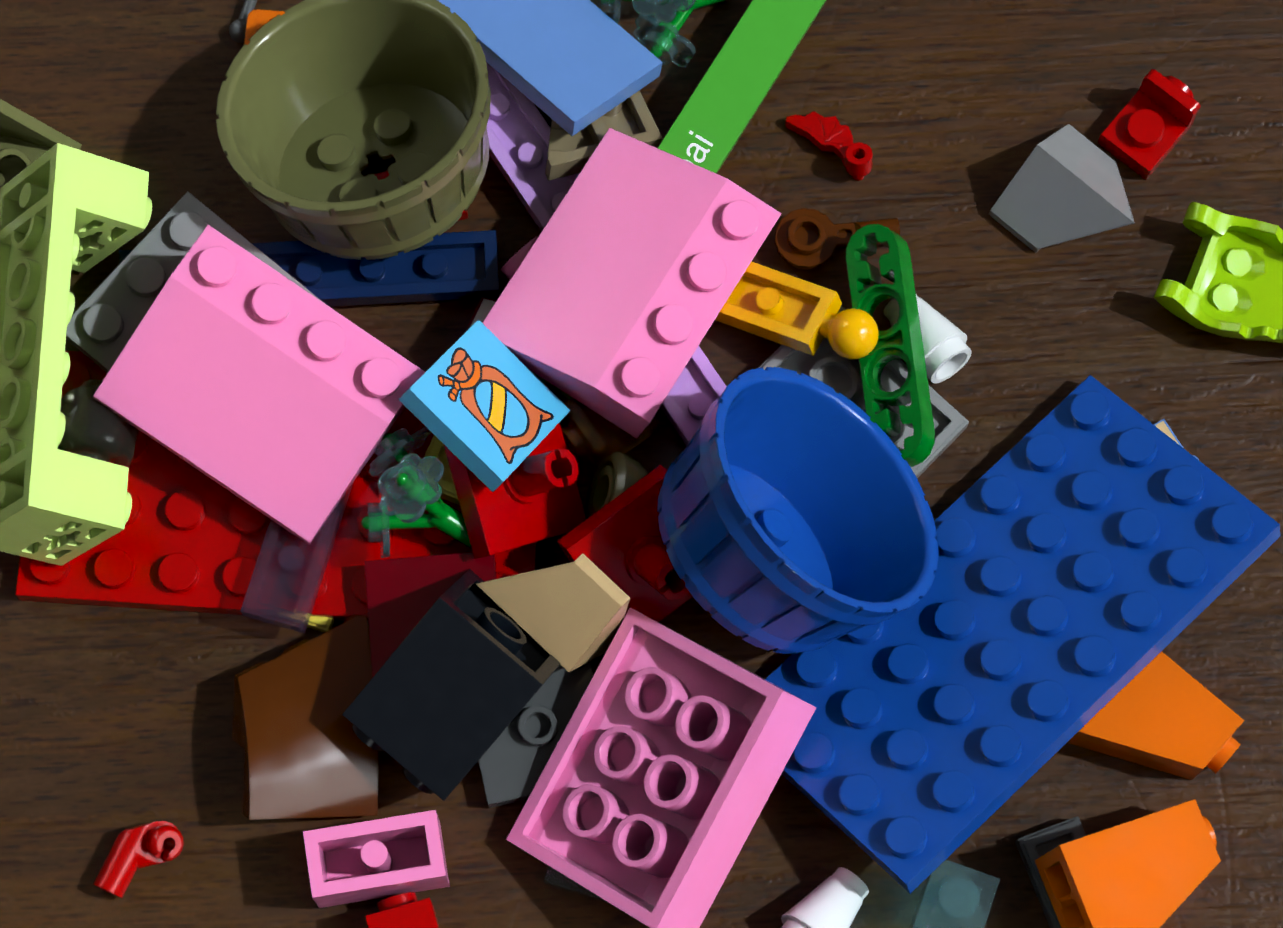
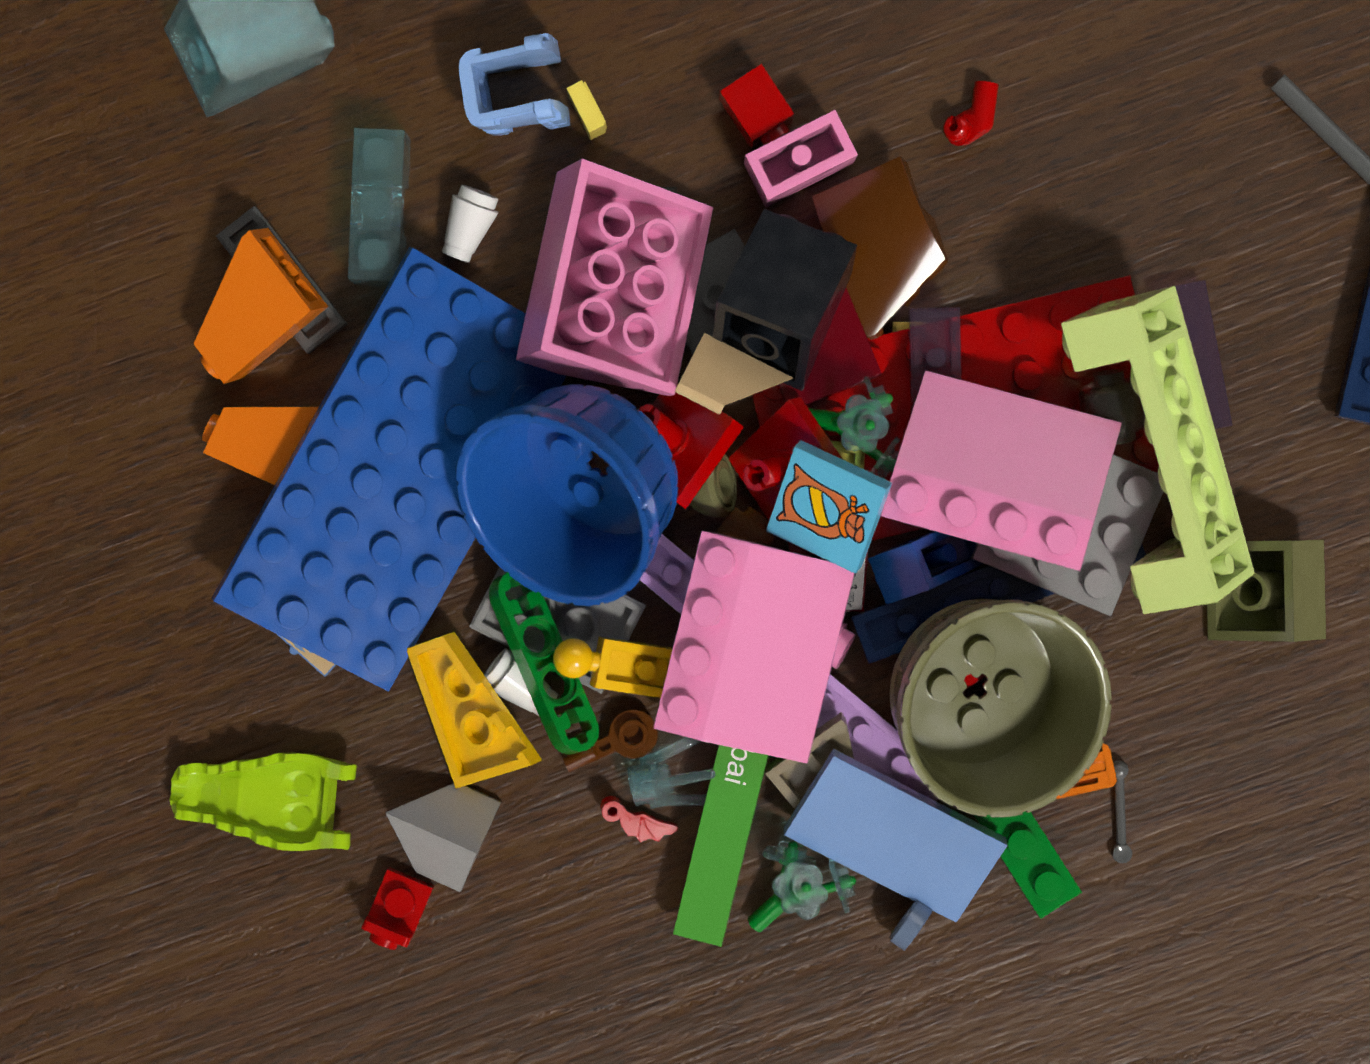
camera: 160 degrees right, 15 degrees up
(404, 316) = (921, 564): none -> blue slope
(798, 171) = (653, 782): none -> clear light blue plant
(1002, 315) = (467, 713): none -> yellow wing

